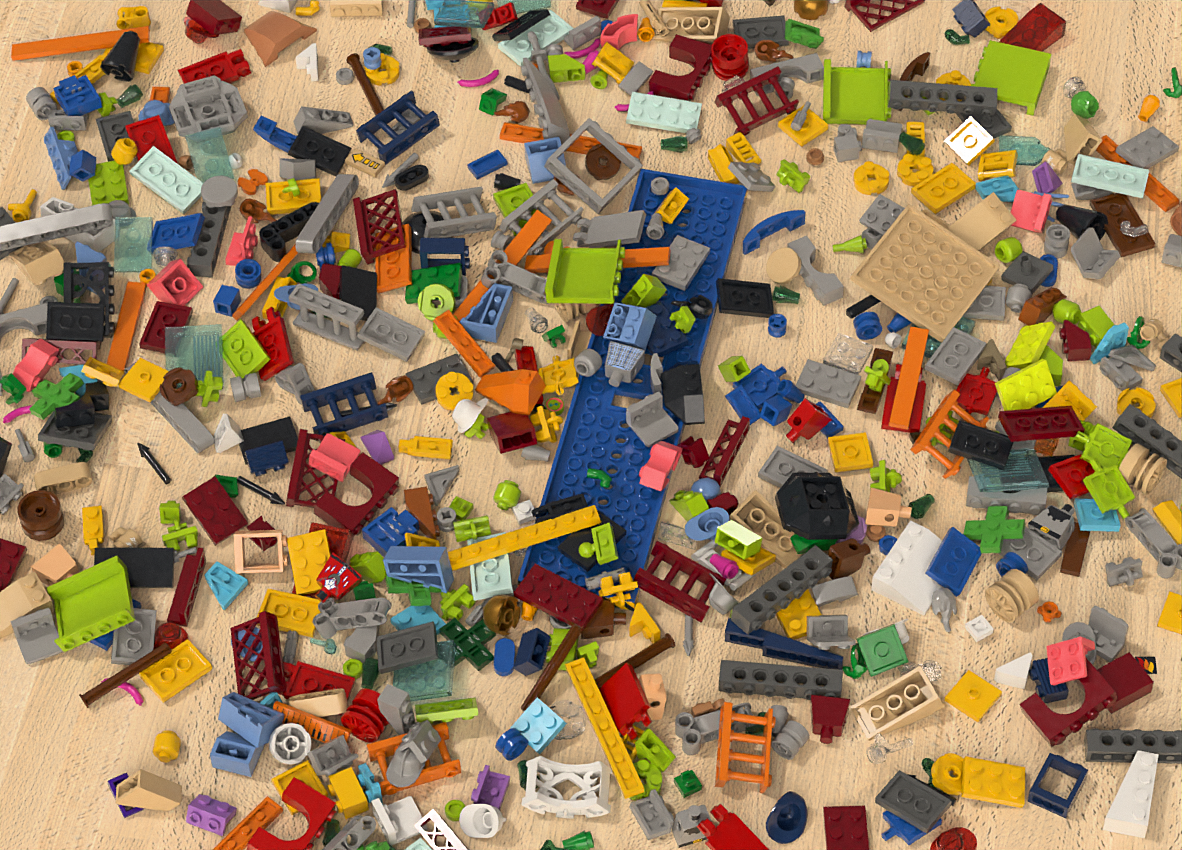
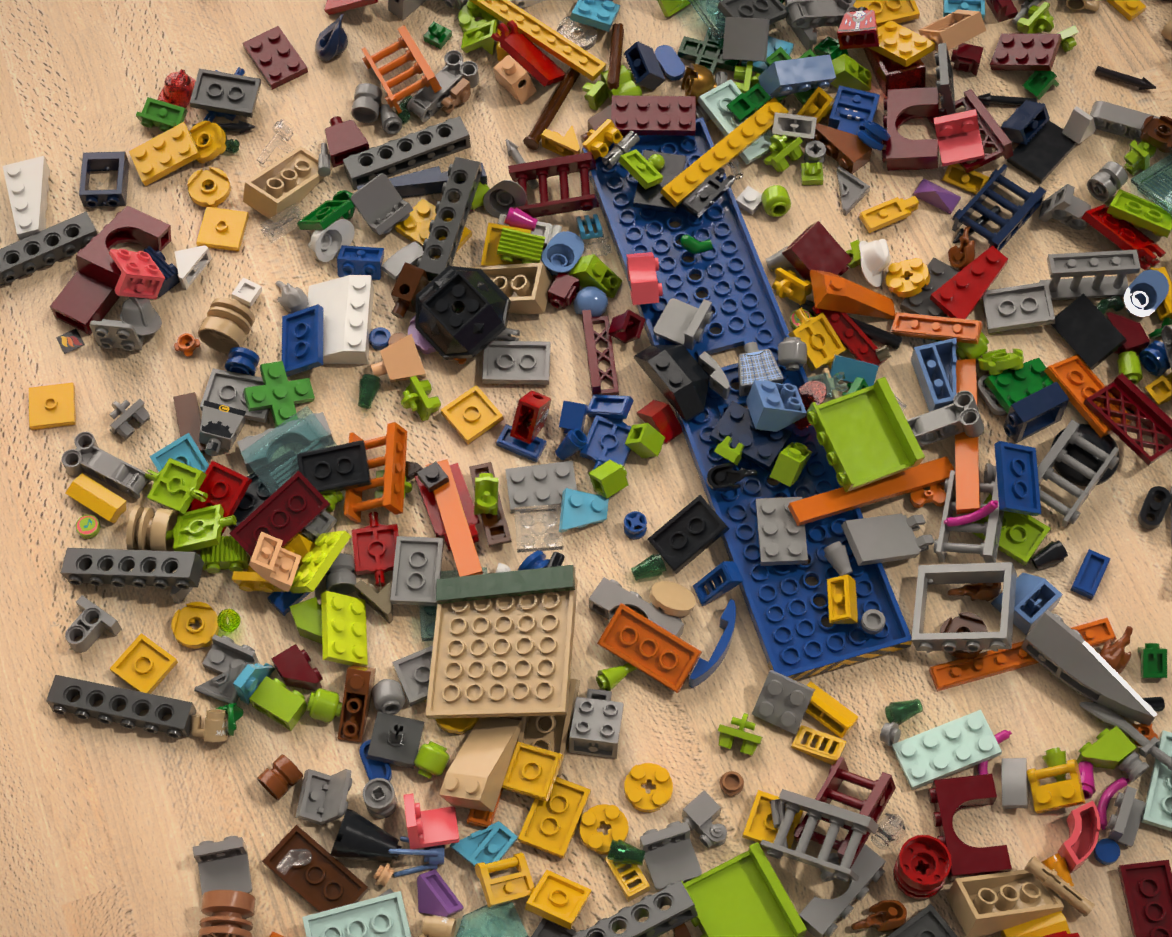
camera: 150 degrees right, 10 degrees up
(302, 509) = (946, 83): none -> dark grey plate
(396, 493) = (873, 135): none -> blue wheel
(420, 359) = (965, 289): none -> red wing
(437, 615) = (745, 39): none -> light grey slope
(448, 536) = (794, 125): none -> white slope
(478, 568) = (749, 102): none -> green slope
(497, 211) = (1017, 478): none -> blue plate
(546, 347) = (854, 368): none -> dark azure tile
(552, 215) = (972, 517): none -> dark pink piece
(580, 334) = (830, 383): none -> clear light blue plate
(672, 533) = (589, 222): none -> dark azure tile
(712, 388) = (661, 418): none -> red slope
(739, 257) = (731, 578): none -> blue slope
(772, 92) = (815, 811): none -> light grey fence
(777, 357) = (608, 478): none -> lime brick
(810, 349) = (581, 509): none -> medium azure wing
(820, 240) = (649, 647): none -> orange tile
(855, 708) = (324, 161): none -> light grey axle
(870, 609) = (360, 261): none -> blue bracket
(901, 300) = (505, 584): none -> tile
(908, 409) = (432, 476): none -> plate
(944, 208) = (532, 771): none -> yellow plate
(963, 745) = (214, 196): none -> yellow plate
(980, 820) = (161, 114): none -> bright green bracket
(1060, 388) = (274, 562): none -> light nougat slope
(1077, 201) = (383, 875): none -> light nougat plate
(1109, 396) = (234, 620): none -> clear neon green plate
(1117, 283) = (278, 778): none -> dark orange wheel

